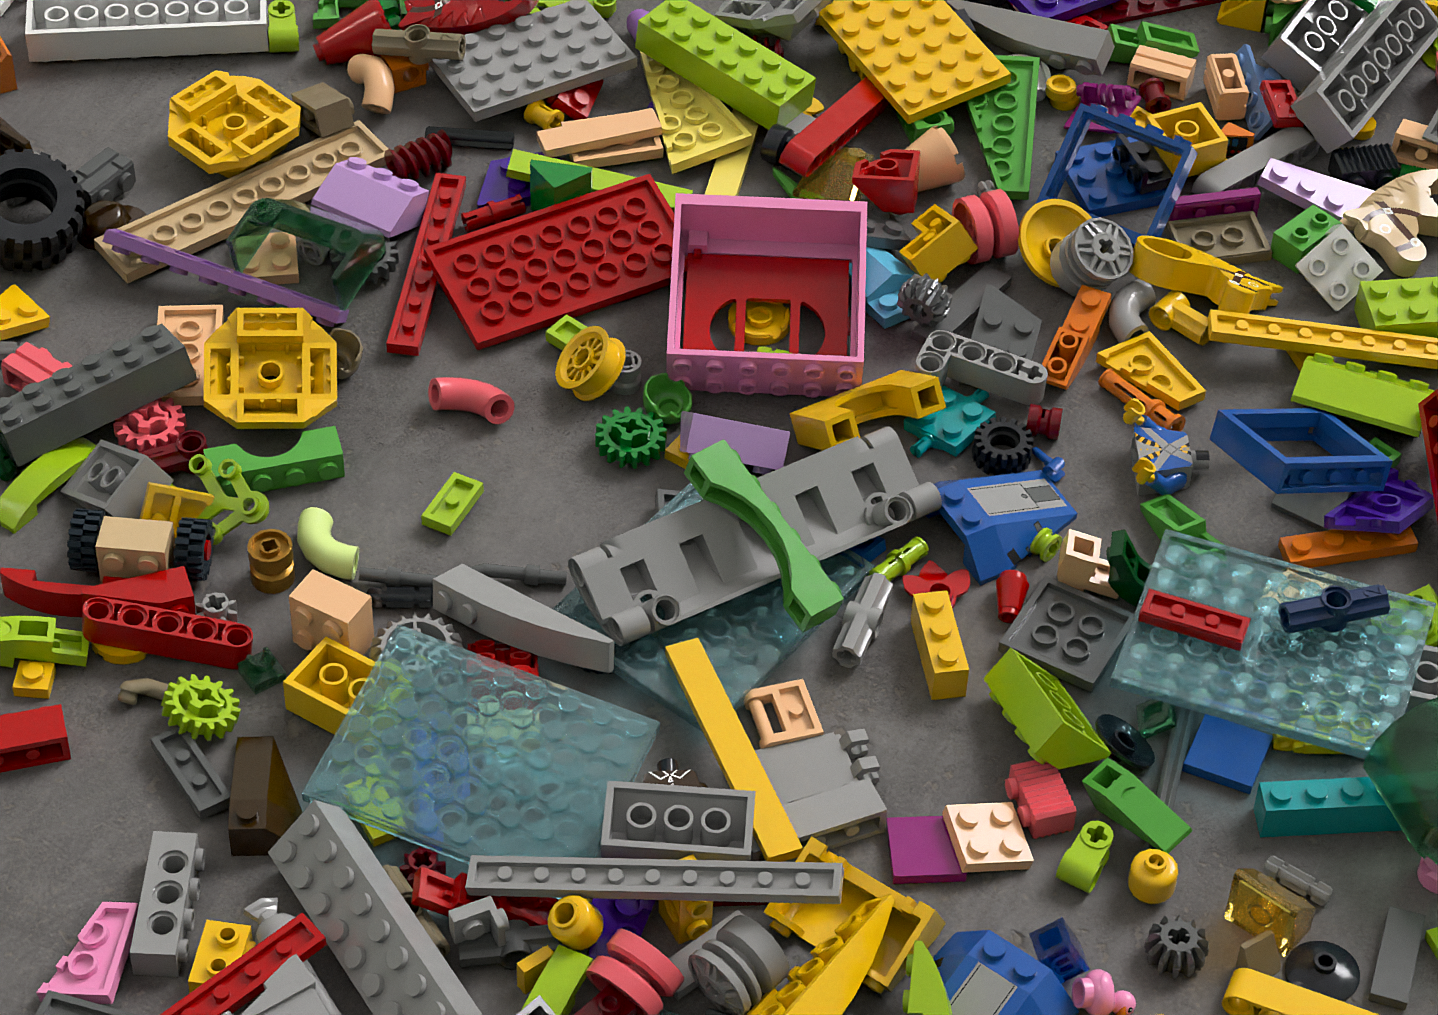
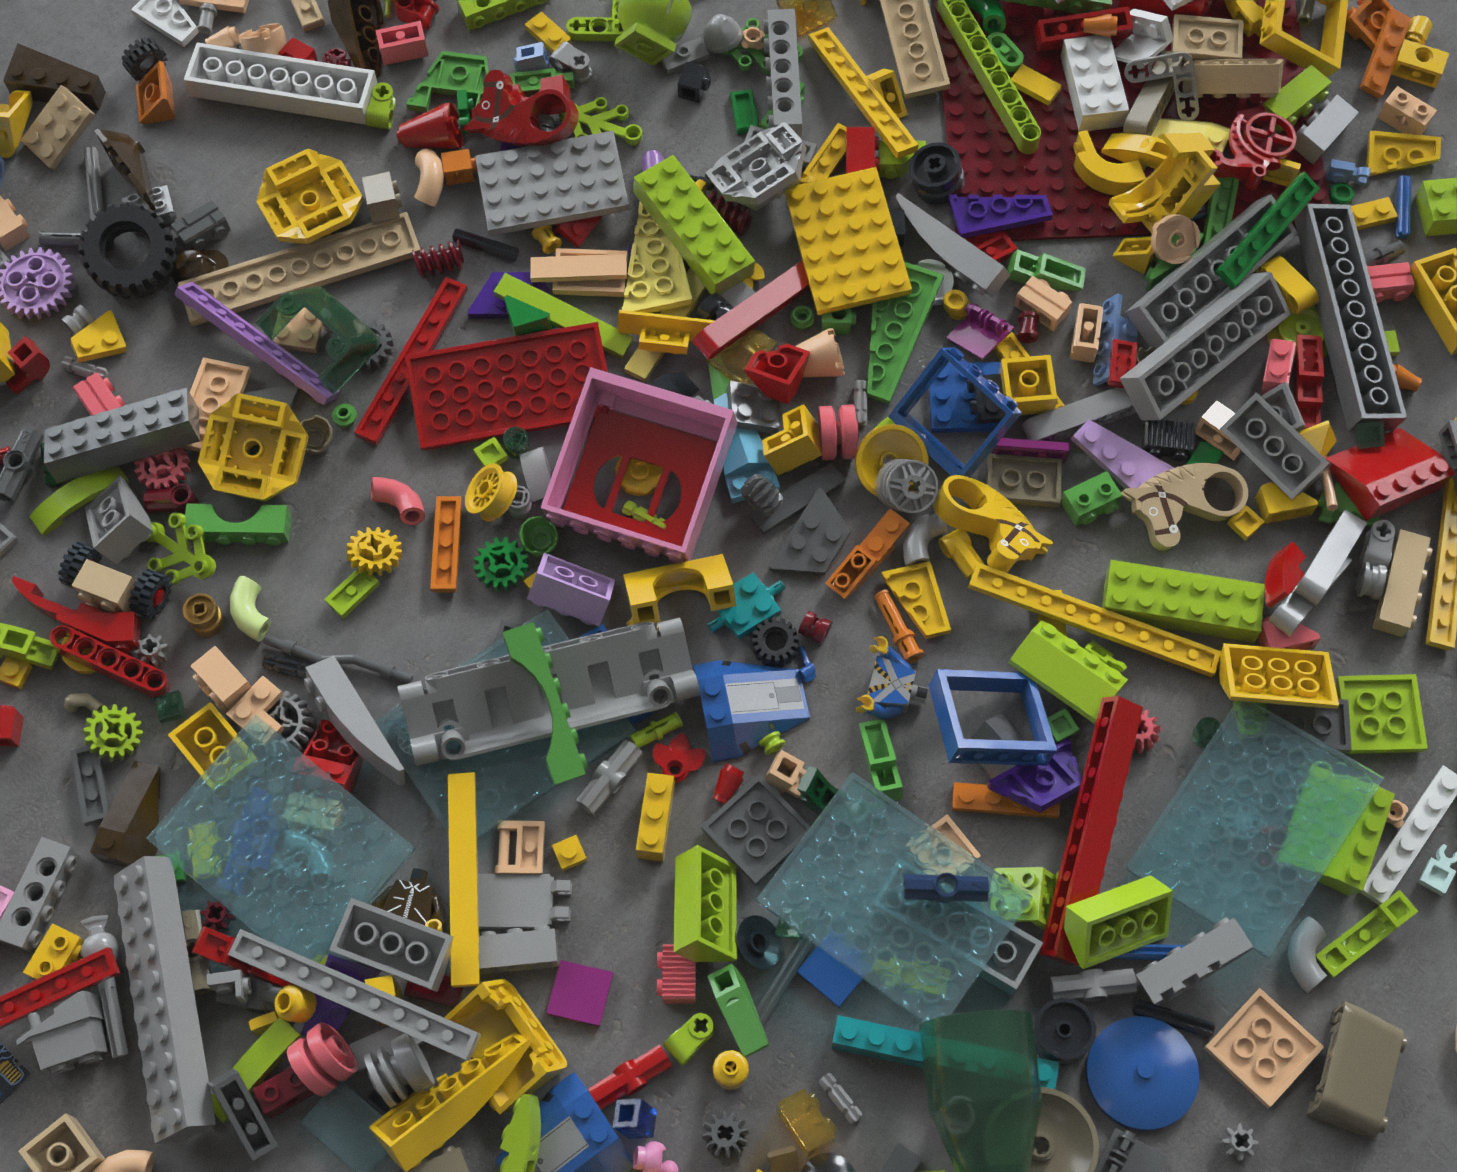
camera: 20 degrees right, 20 degrees up
(173, 503) = (143, 554): yellow wing -> none
(367, 331) = (344, 421): none -> bright green plate
(372, 197) = (386, 294): lavender slope -> none
(380, 627) = (257, 701): none -> light nougat plate
(419, 44) = (466, 156): dark tan piece -> none
(465, 454) = (374, 551): none -> yellow gear
(493, 213) = (476, 323): red pin -> none
(552, 433) = (446, 544): none -> orange plate
(597, 311) = (512, 445): none -> clear green wheel
(638, 338) = (536, 472): none -> light grey slope
(729, 171) = (660, 331): none -> yellow bracket
(846, 710) = (569, 853): none -> yellow plate
(886, 136) = (801, 311): none -> bright green plate
(982, 367) = (781, 572): light grey beam -> none
(987, 837) = (626, 998): light nougat plate -> none
(1036, 909) = (630, 1077): none -> red piece
(1194, 619) = (838, 865): red tile -> none
(1238, 139) = (1073, 387): slope -> none
(1338, 267) = (1102, 537): white bracket -> none

